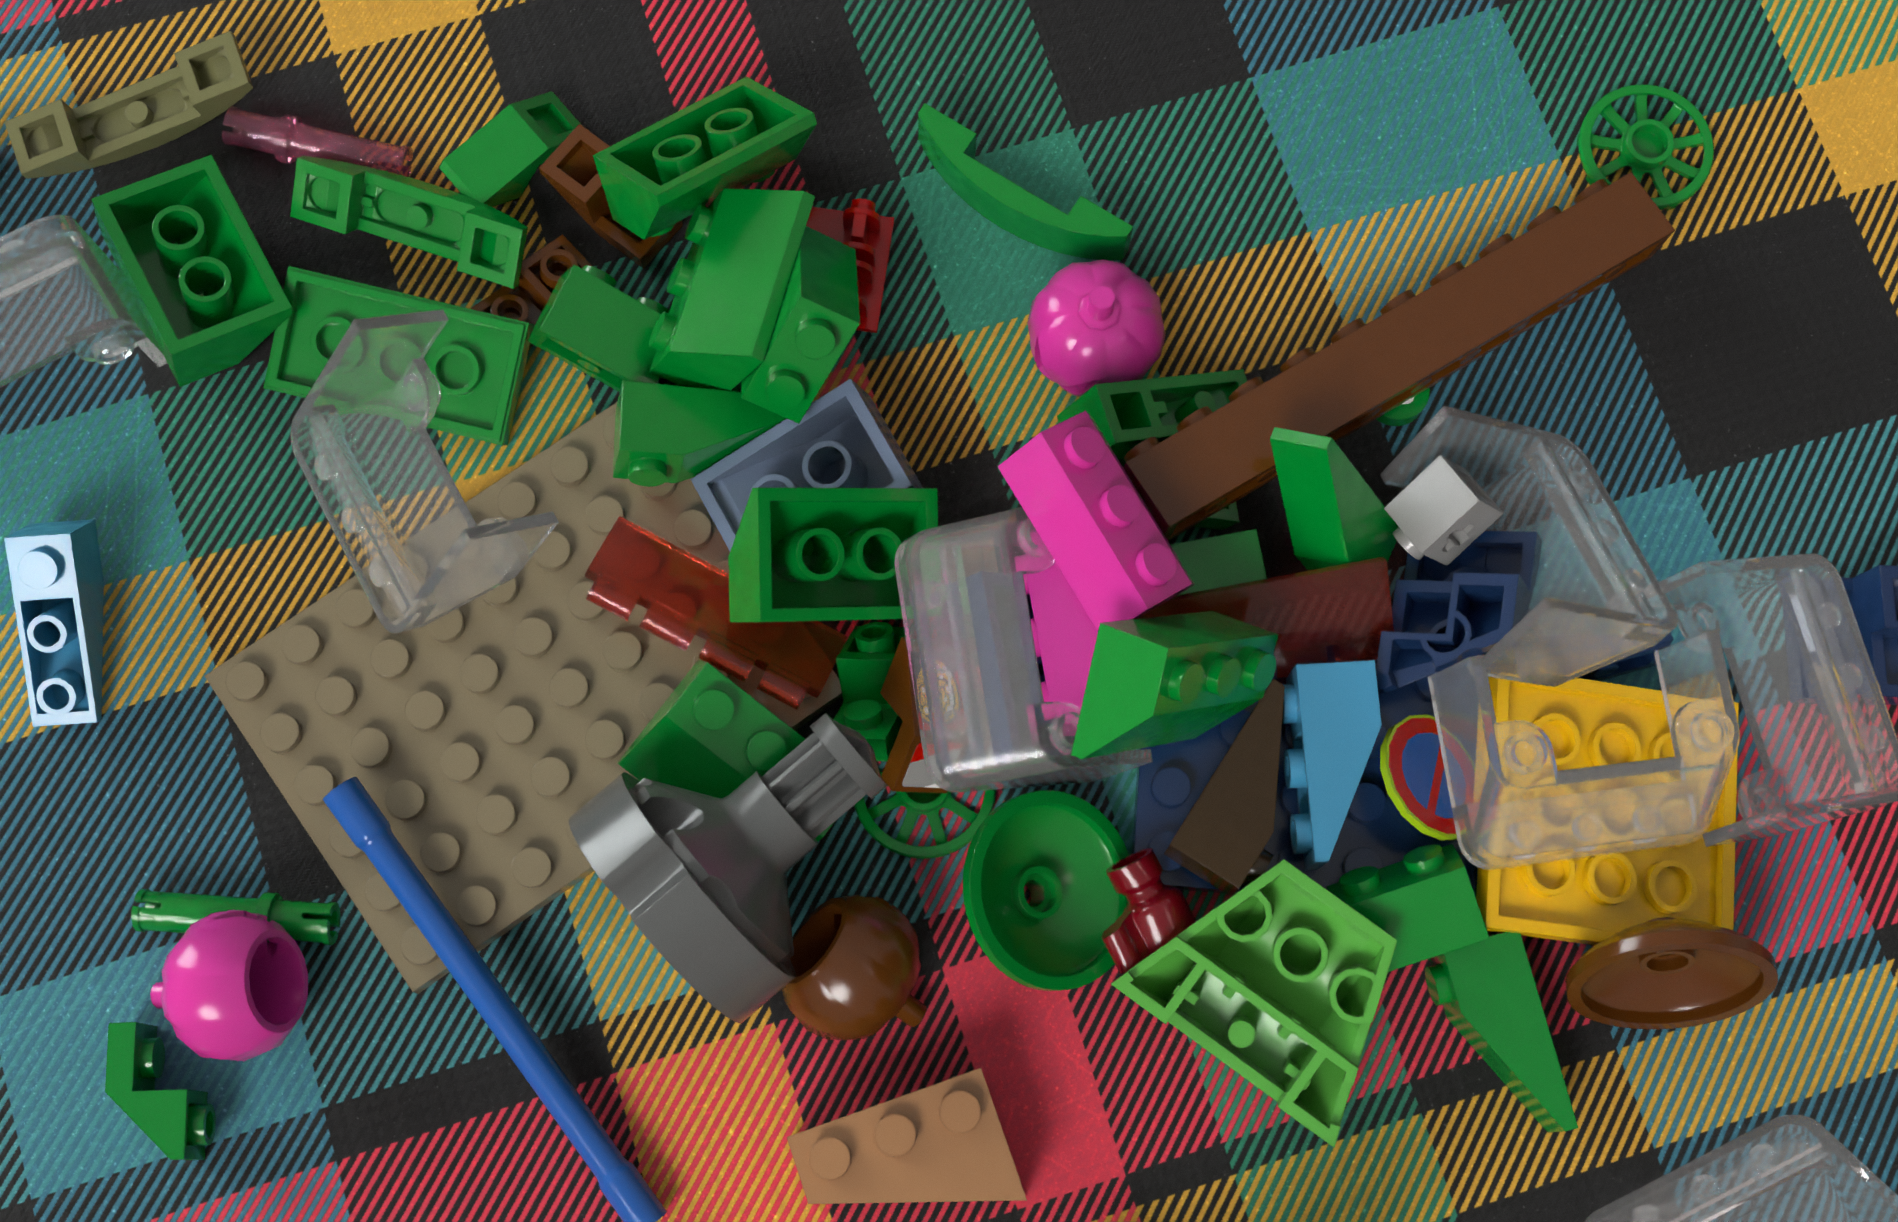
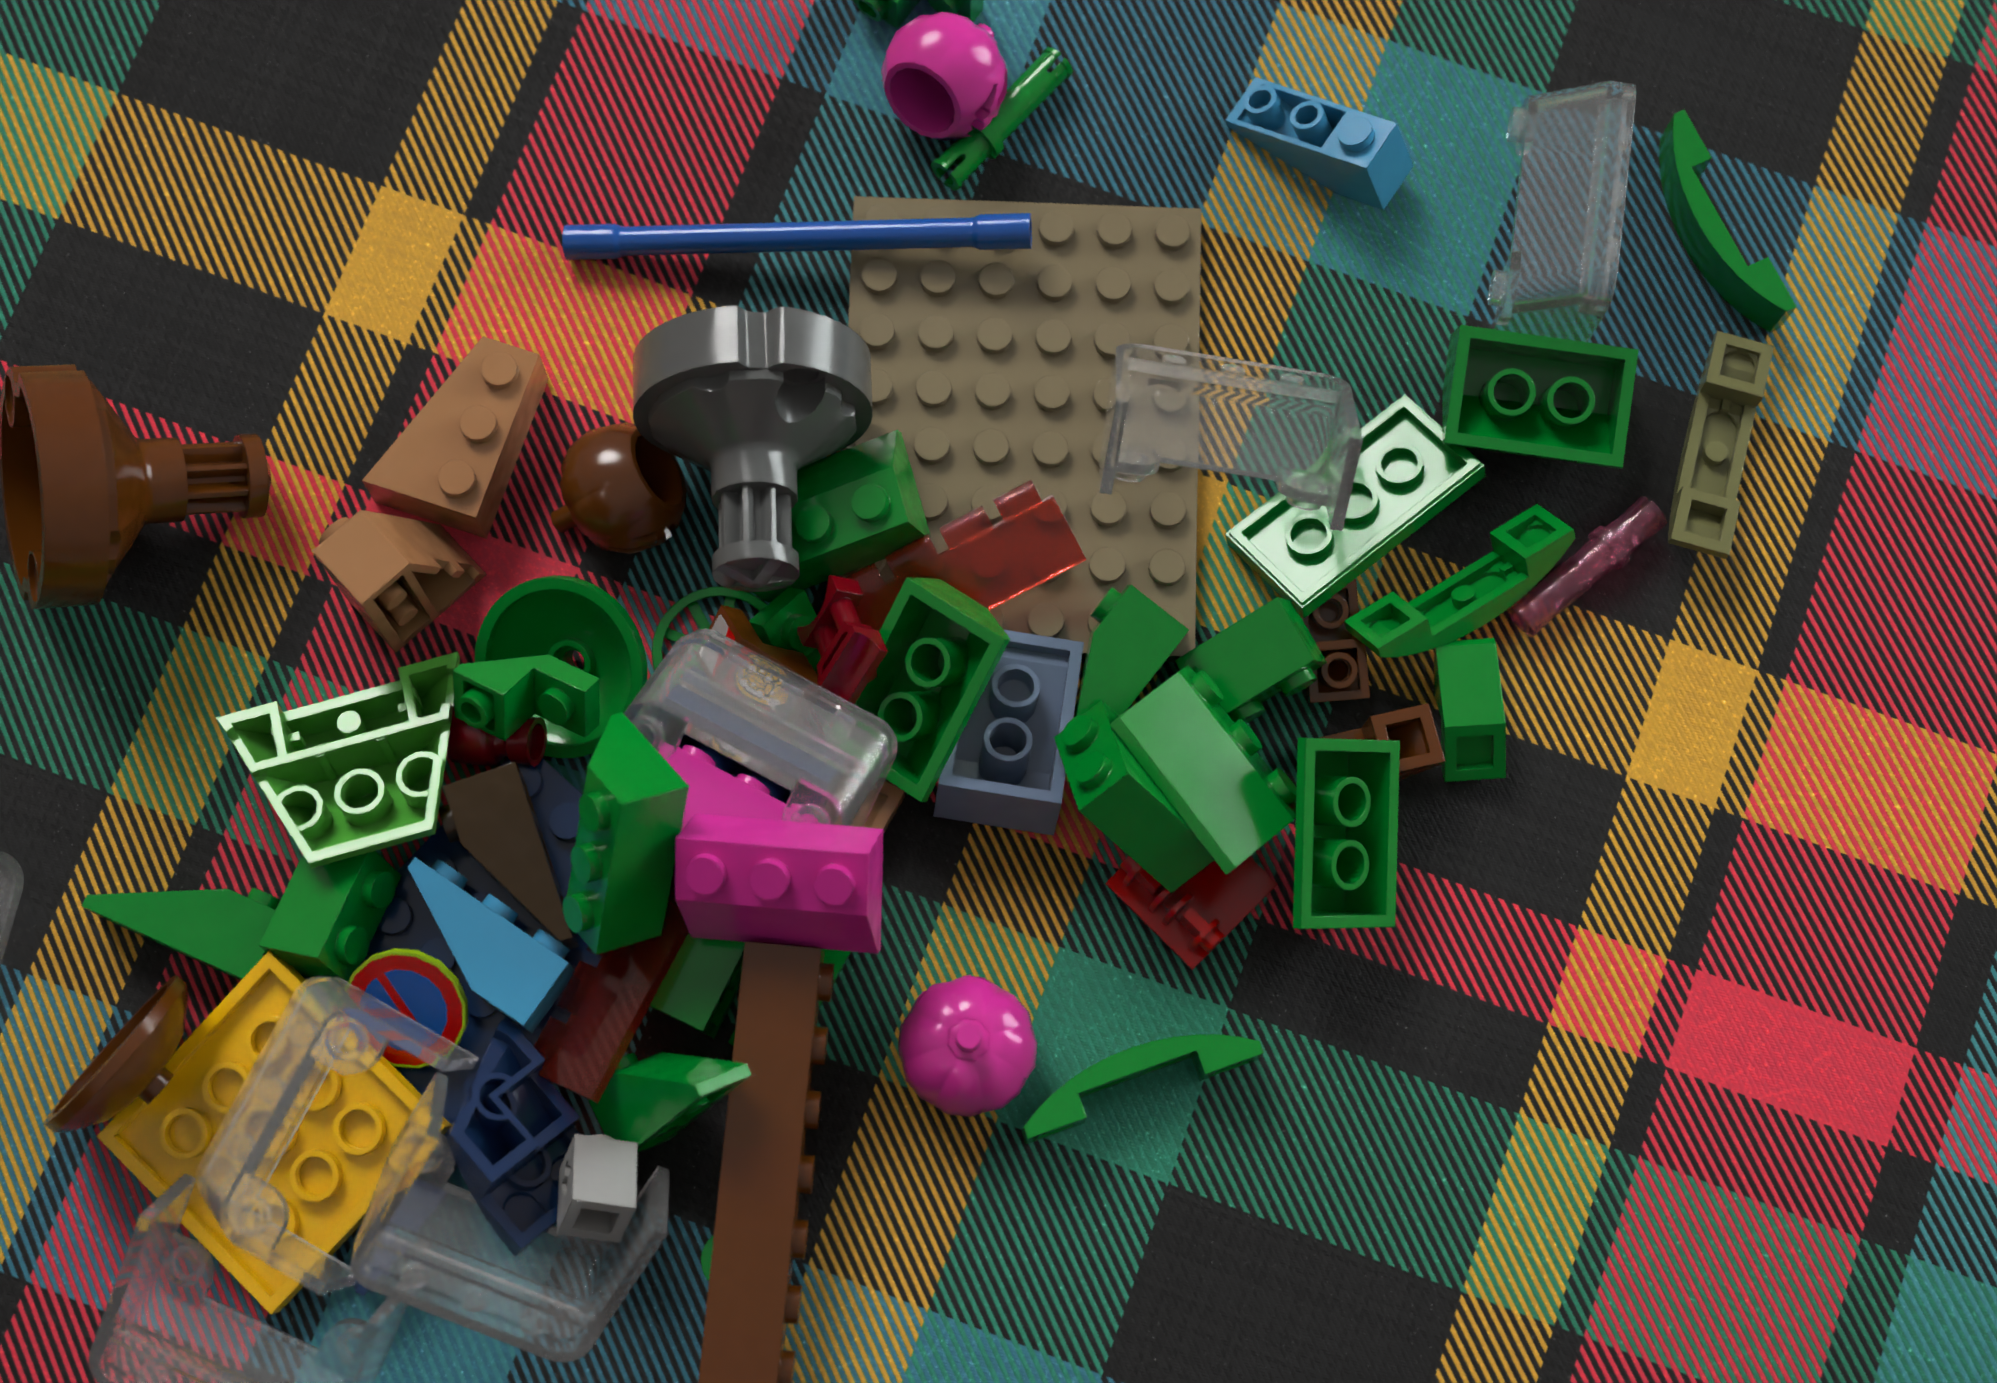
camera: 125 degrees right, 0 degrees up
(856, 623) = (846, 646): none -> dark red piece
(1082, 1093) = (396, 571): none -> medium nougat wedge
(1122, 908) = (508, 692): none -> green slope
(1151, 407) = (860, 1042): green slope -> none

